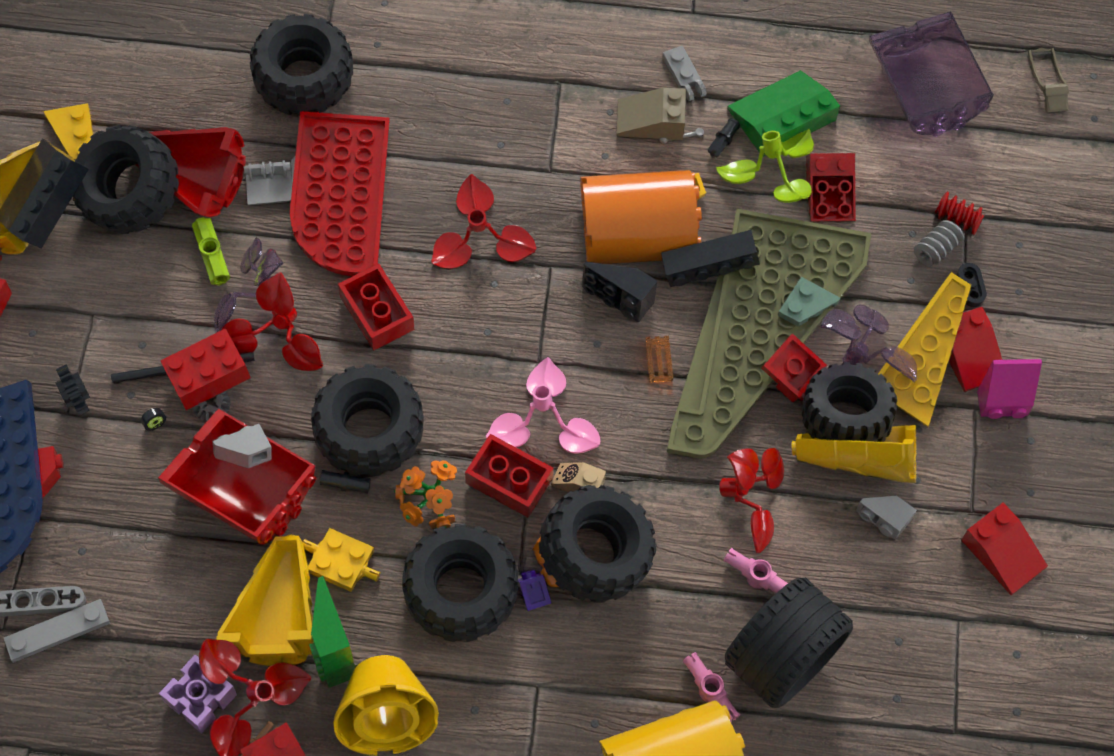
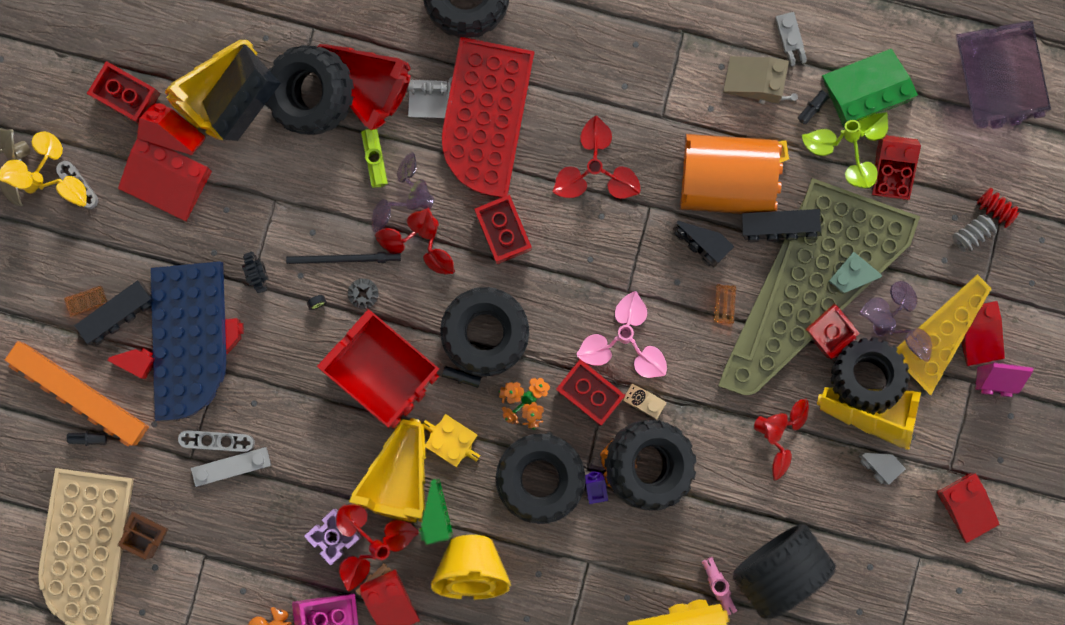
camera: 10 degrees right, 20 degrees up
(71, 126) = (271, 27): yellow wing -> none
(205, 369) = (361, 269): red brick -> none
(243, 448) = (386, 350): light grey slope -> none
(748, 566) = (780, 507): bright pink pin -> none
(977, 284) = (995, 274): black plate -> none

